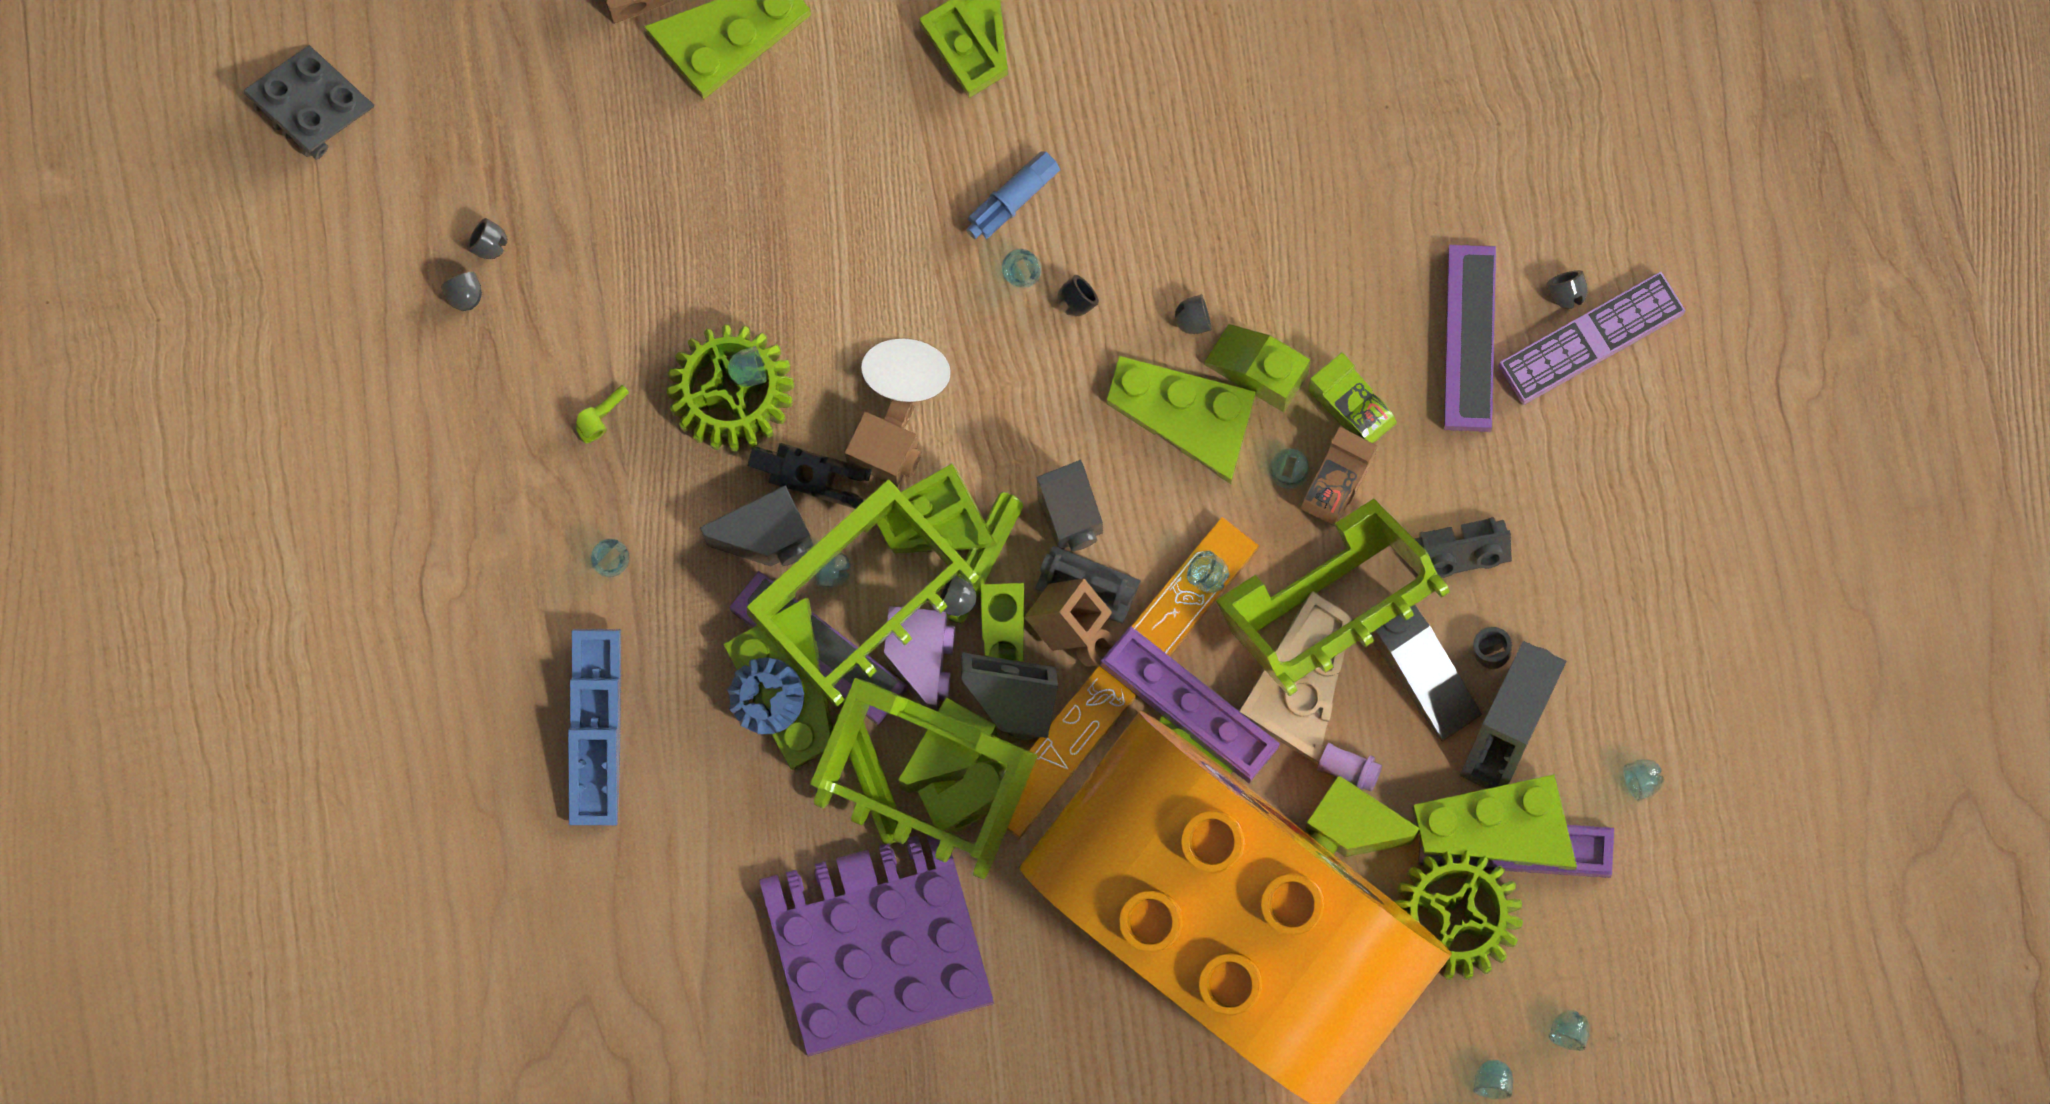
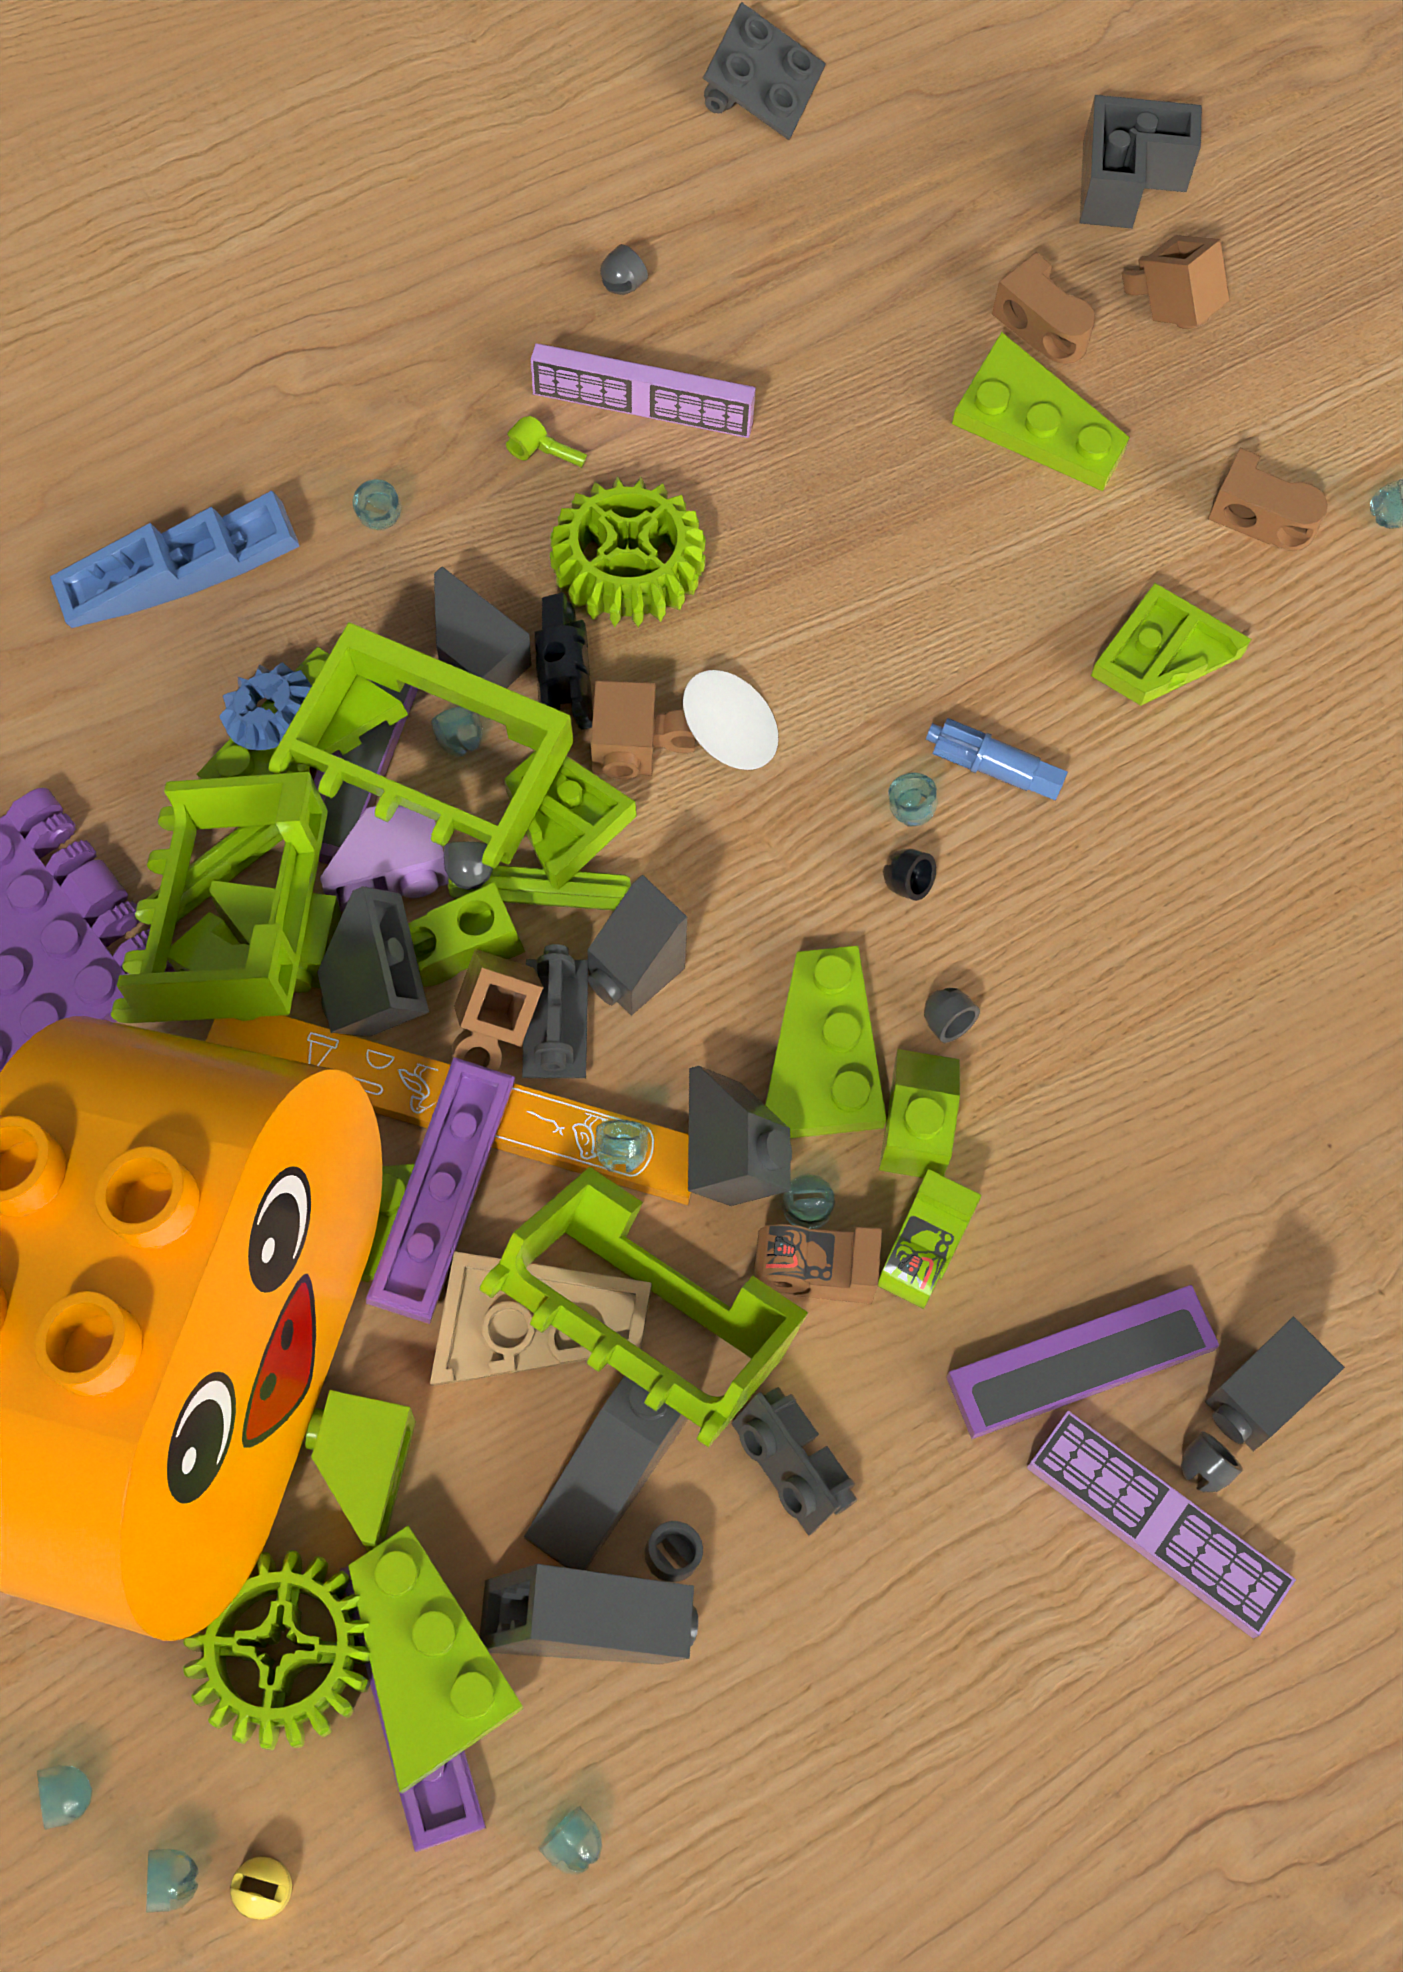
camera: 60 degrees right, 10 degrees down
(487, 240) = (690, 271): dark grey hinge -> none
(587, 319) = (642, 390): none -> lavender tile
(747, 367) = (650, 540): clear light blue hinge -> none
(1233, 496) = (735, 1142): none -> dark grey slope
(1350, 766) = (437, 1426): lavender pin -> none
(1540, 227) = (1273, 1385): none -> dark grey slope
(1604, 984) = (253, 1904): none -> light yellow hinge

